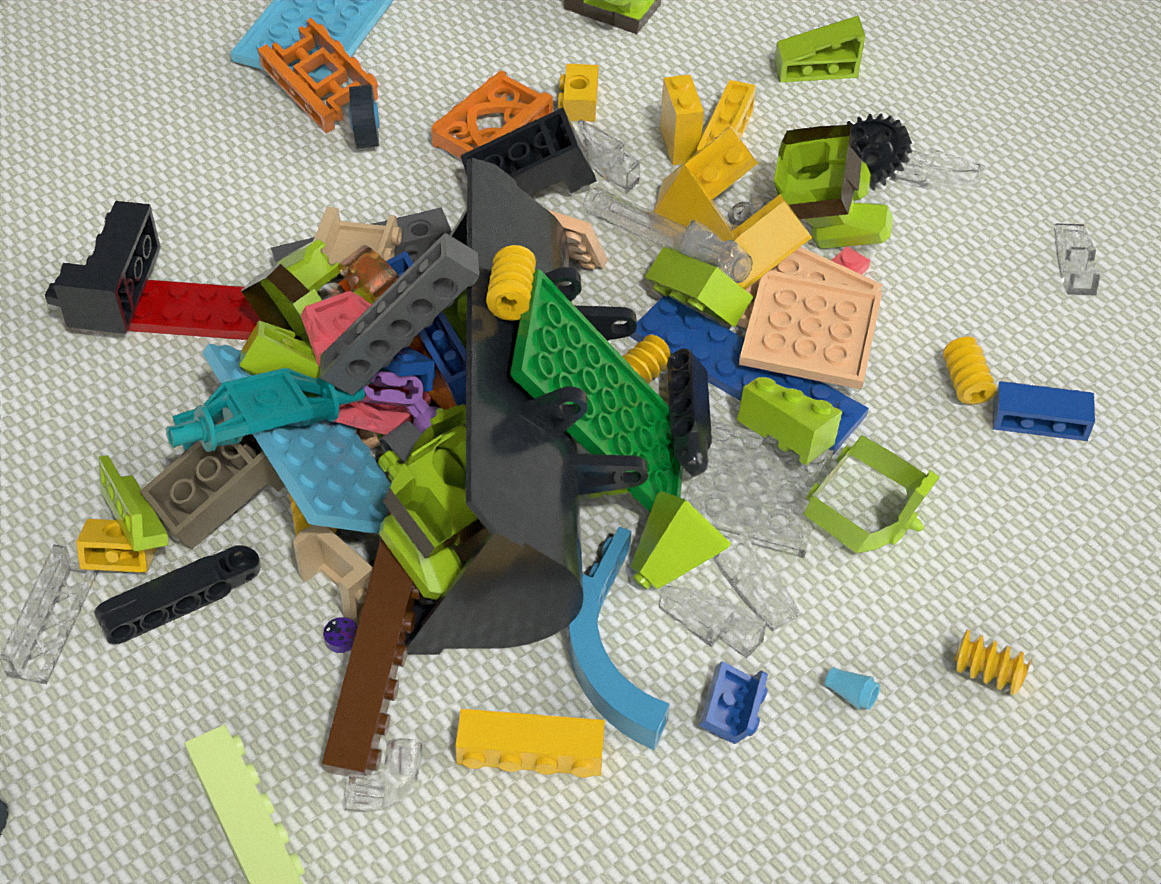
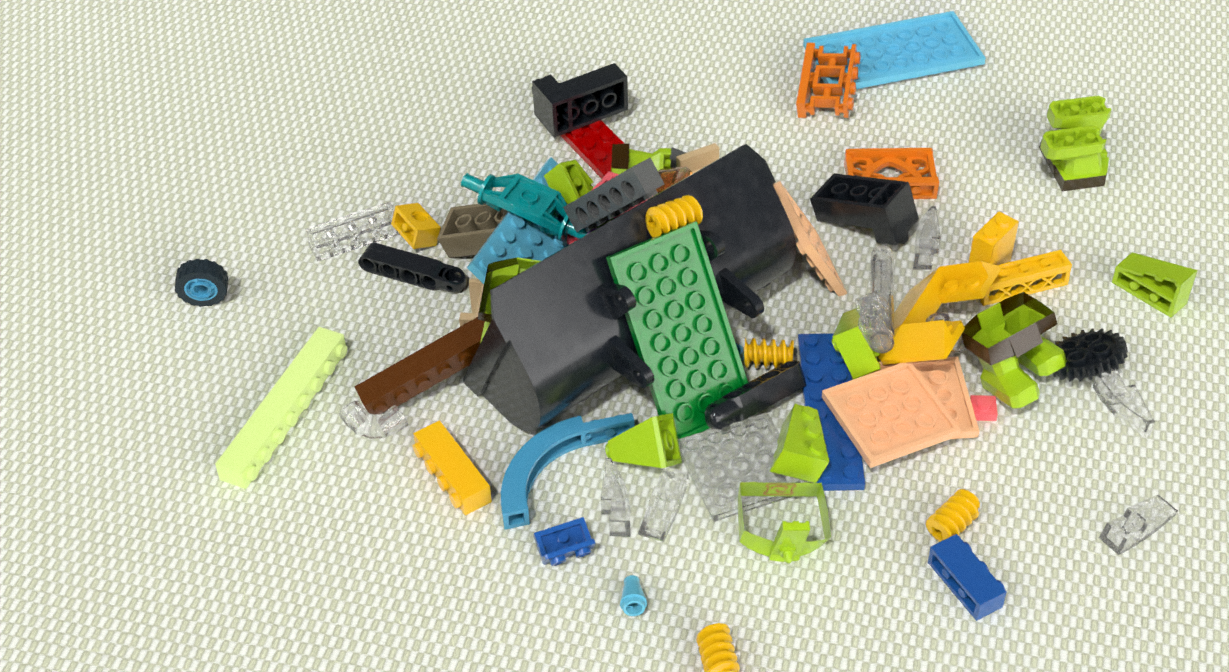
camera: 55 degrees right, 5 degrees down
(131, 508) = (430, 213): lime fence -> none
(364, 116) = (816, 117): black wheel -> none
(580, 91) = (966, 195): yellow brick -> none

